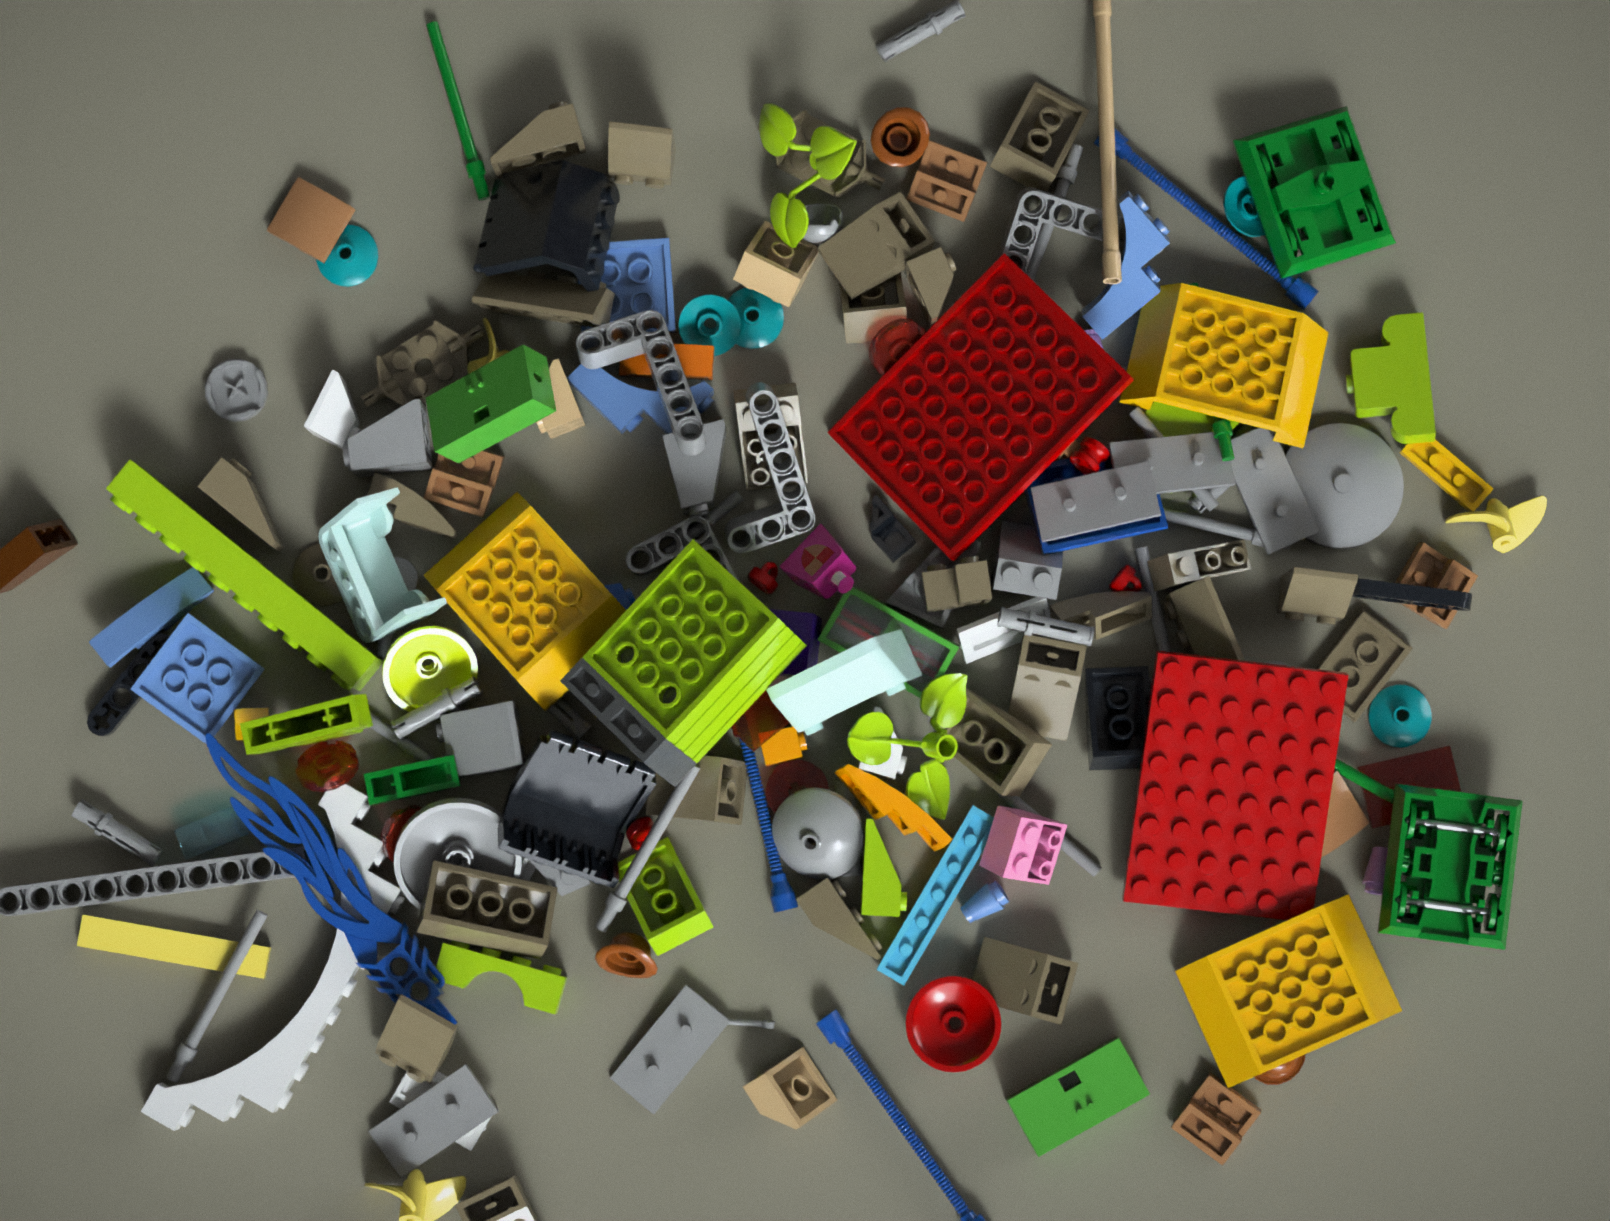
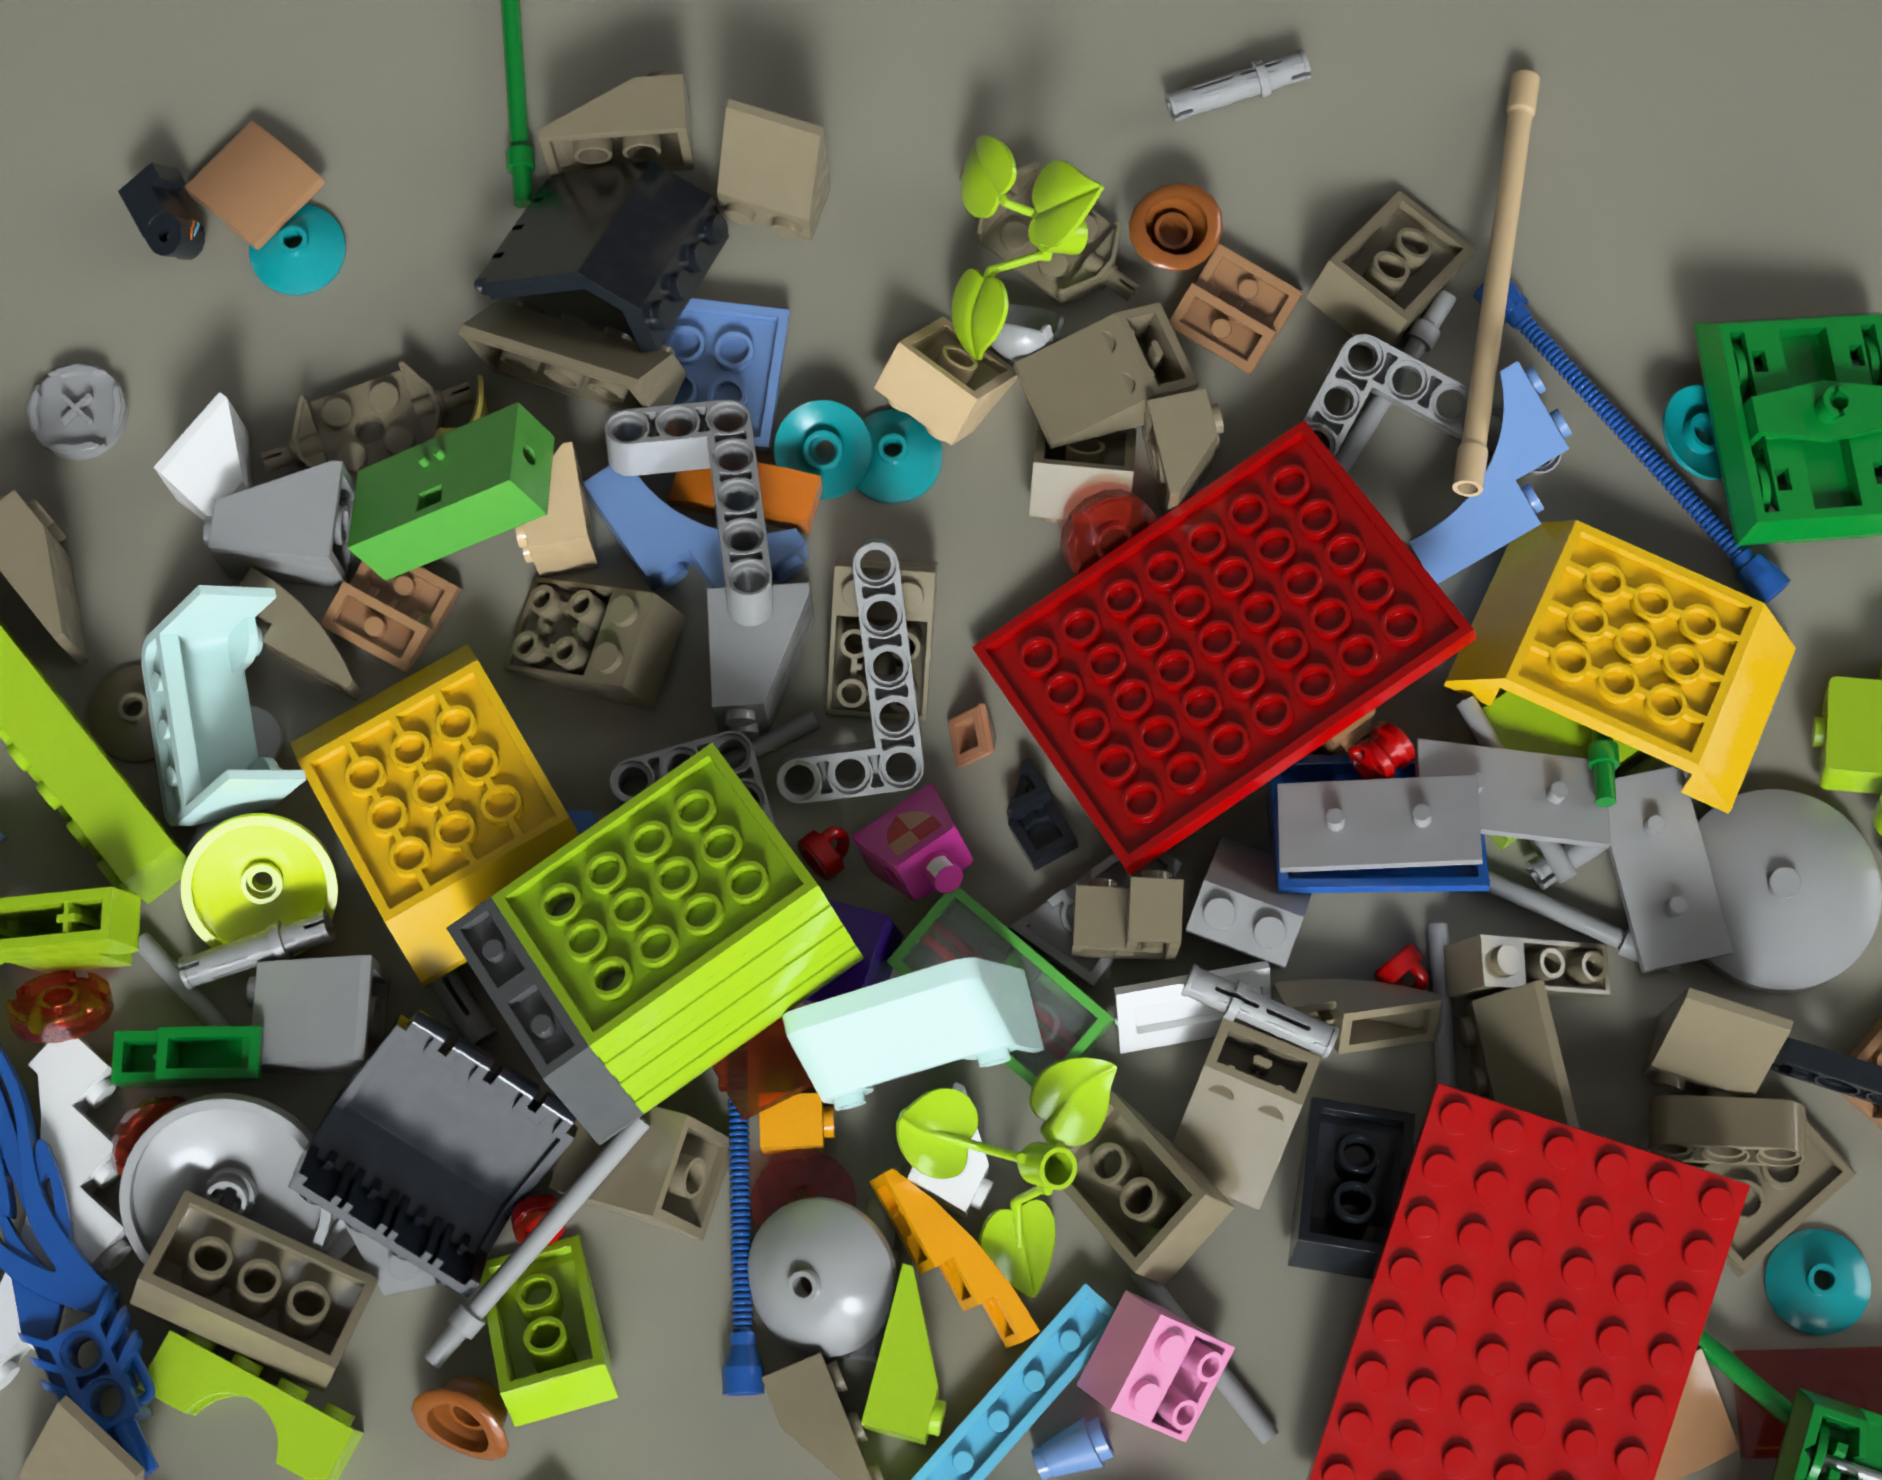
camera: 15 degrees right, 10 degrees down
(258, 252) = (161, 213): none -> black leg
(595, 474) = (596, 640): none -> dark tan slope
(838, 487) = (972, 735): none -> nougat slope
(1332, 639) = (1727, 1130): none -> dark tan beam

